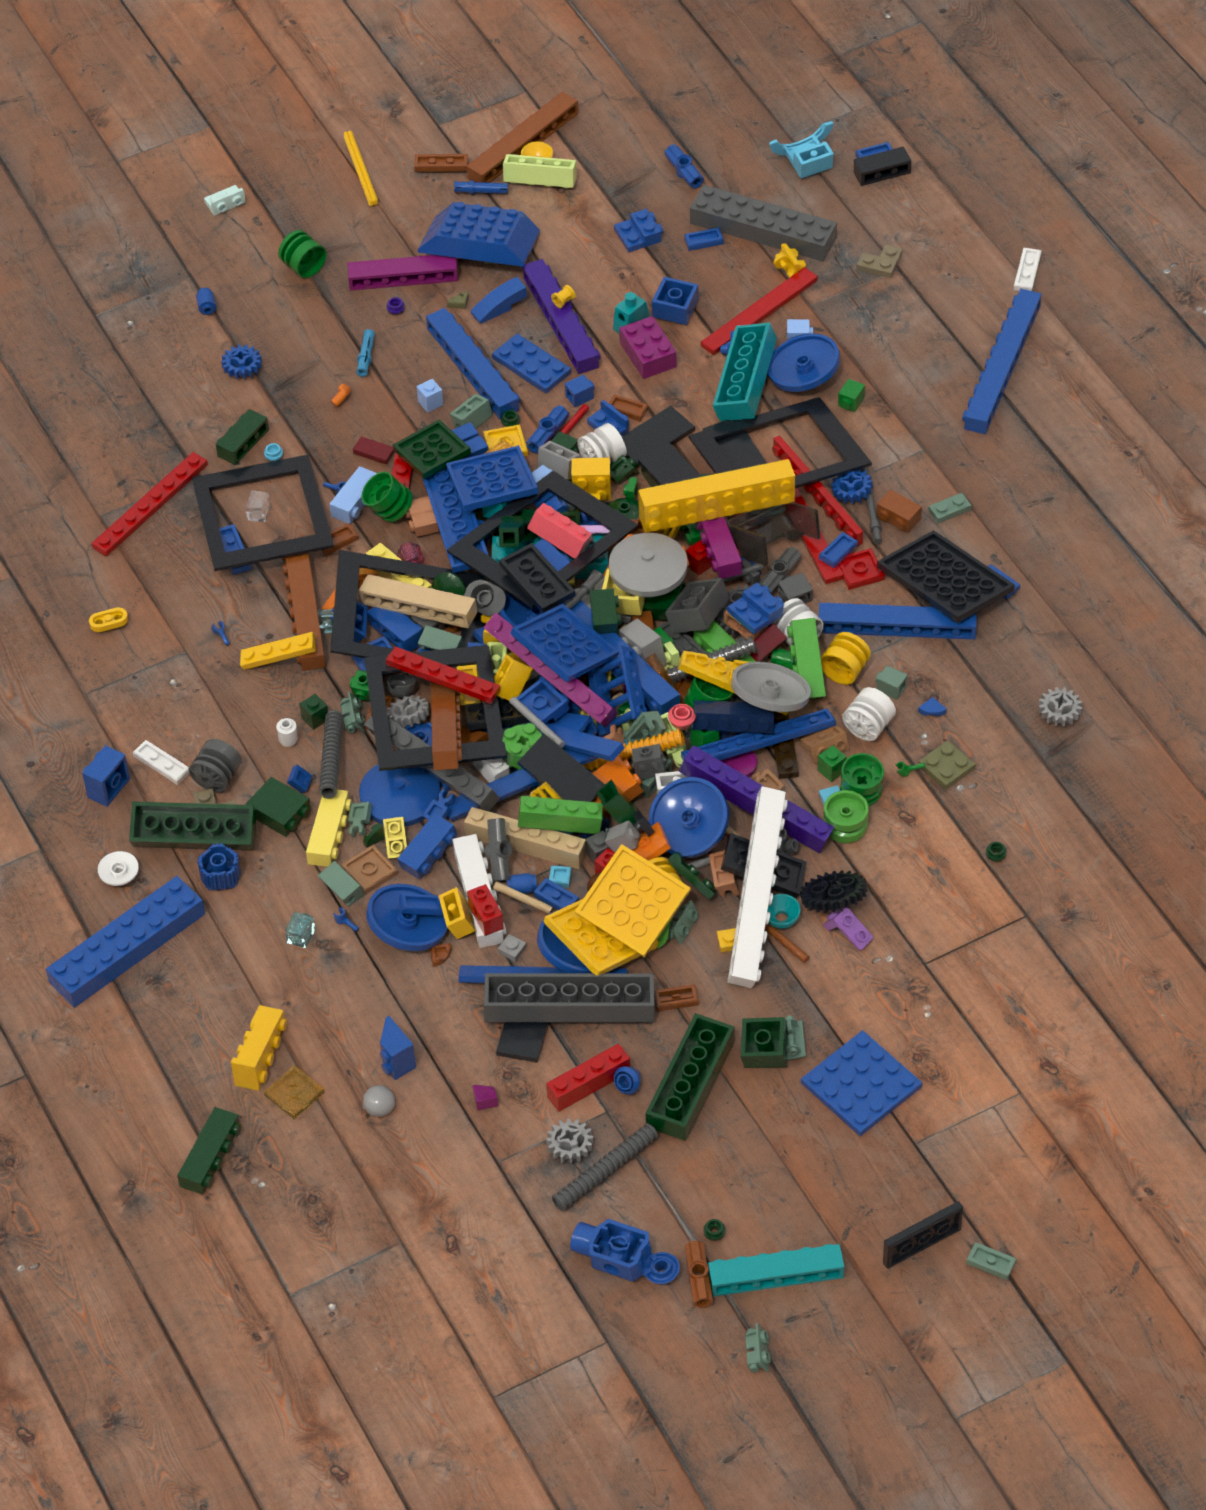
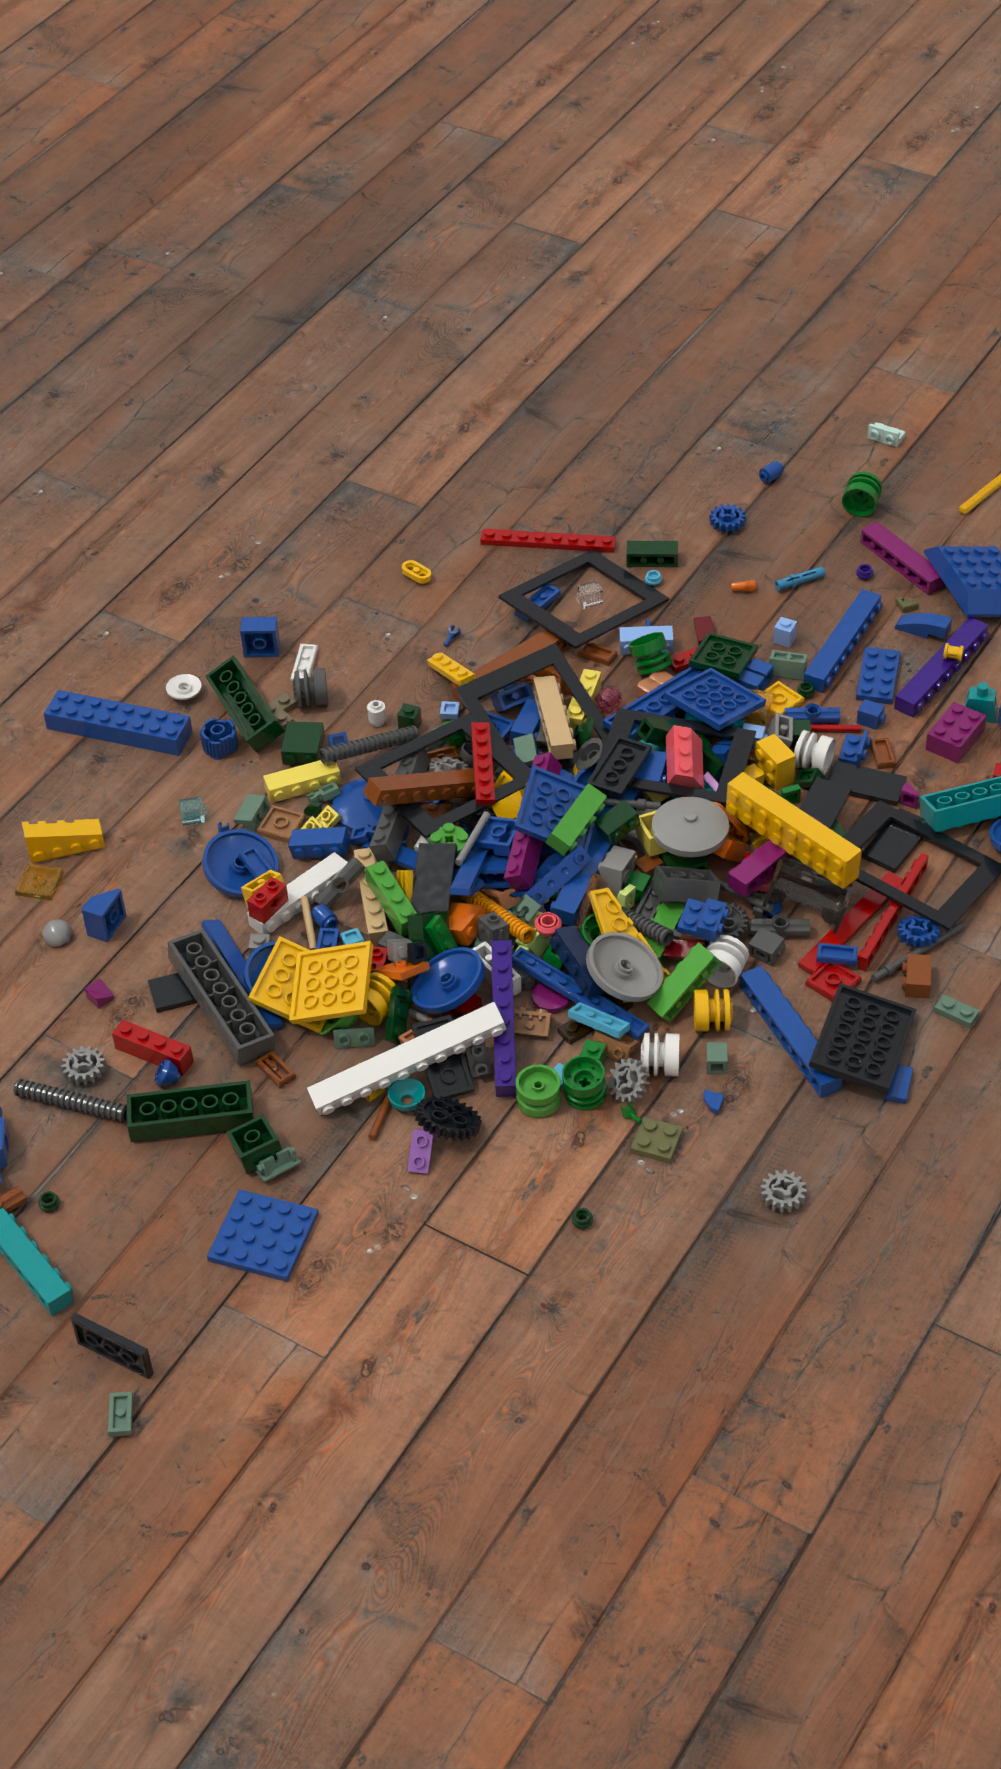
camera: 60 degrees right, 5 degrees down
(325, 678) = (449, 710): none -> light blue plate
(440, 953) = (225, 903): dark orange tile -> none
(588, 633) = (576, 819): none -> bright green brick
(635, 800) = (440, 934): none -> green plate
(696, 414) = (909, 796): none -> magenta slope
(802, 737) = (599, 1020): none -> medium azure plate
(889, 747) = (628, 1080): none -> light grey gear

